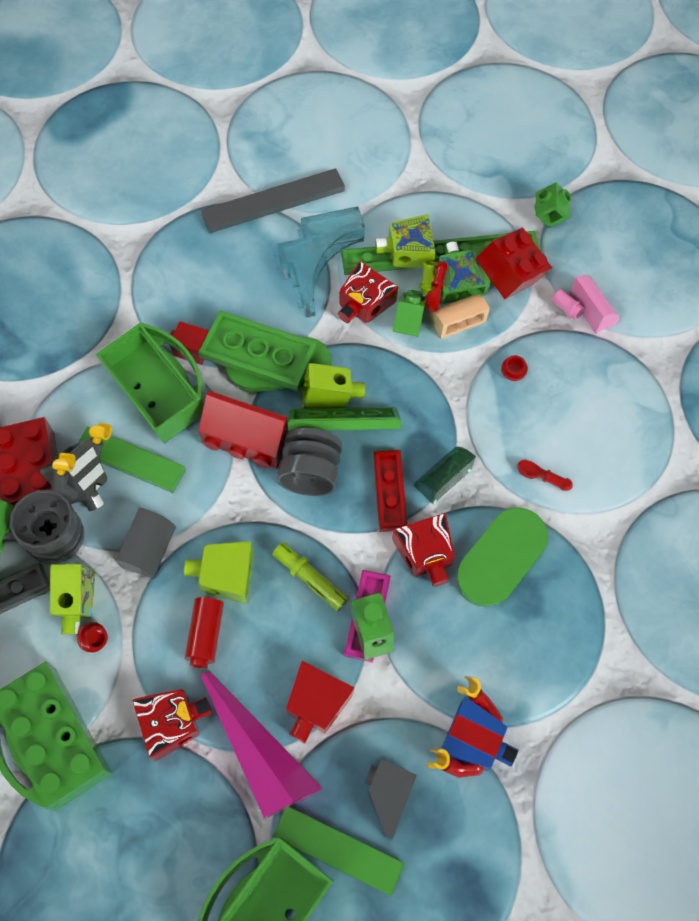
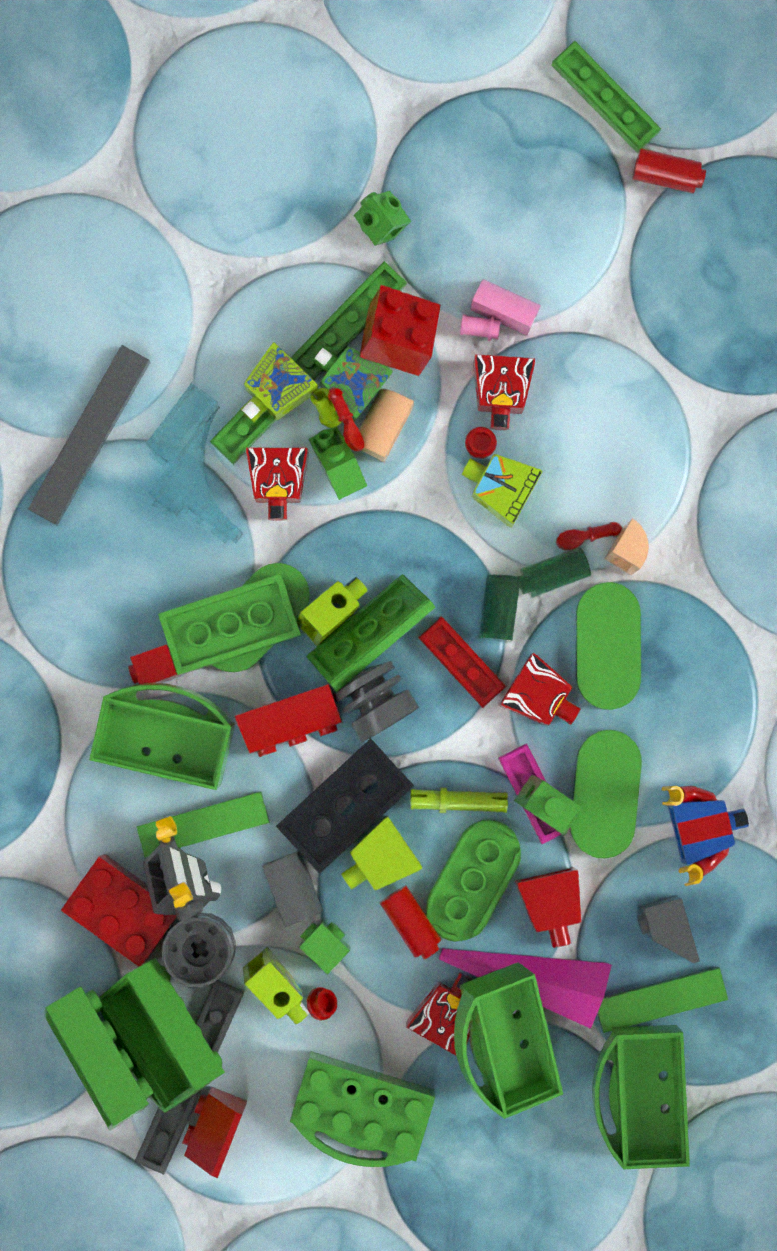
camera: 40 degrees left, 20 degrees up
(131, 598) = (324, 945): none -> bright green brick
(175, 803) = (512, 1072): none -> bright green piece
(219, 503) = (345, 828): none -> black plate
(273, 641) = (473, 880): none -> bright green tile
(420, 657) = (607, 792): none -> bright green tile
(501, 478) = (554, 572): none -> clear green brick
(509, 401) = (502, 486): none -> lime torso
(556, 344) = (502, 386): none -> red torso
(566, 495) = (629, 548): none -> light nougat brick

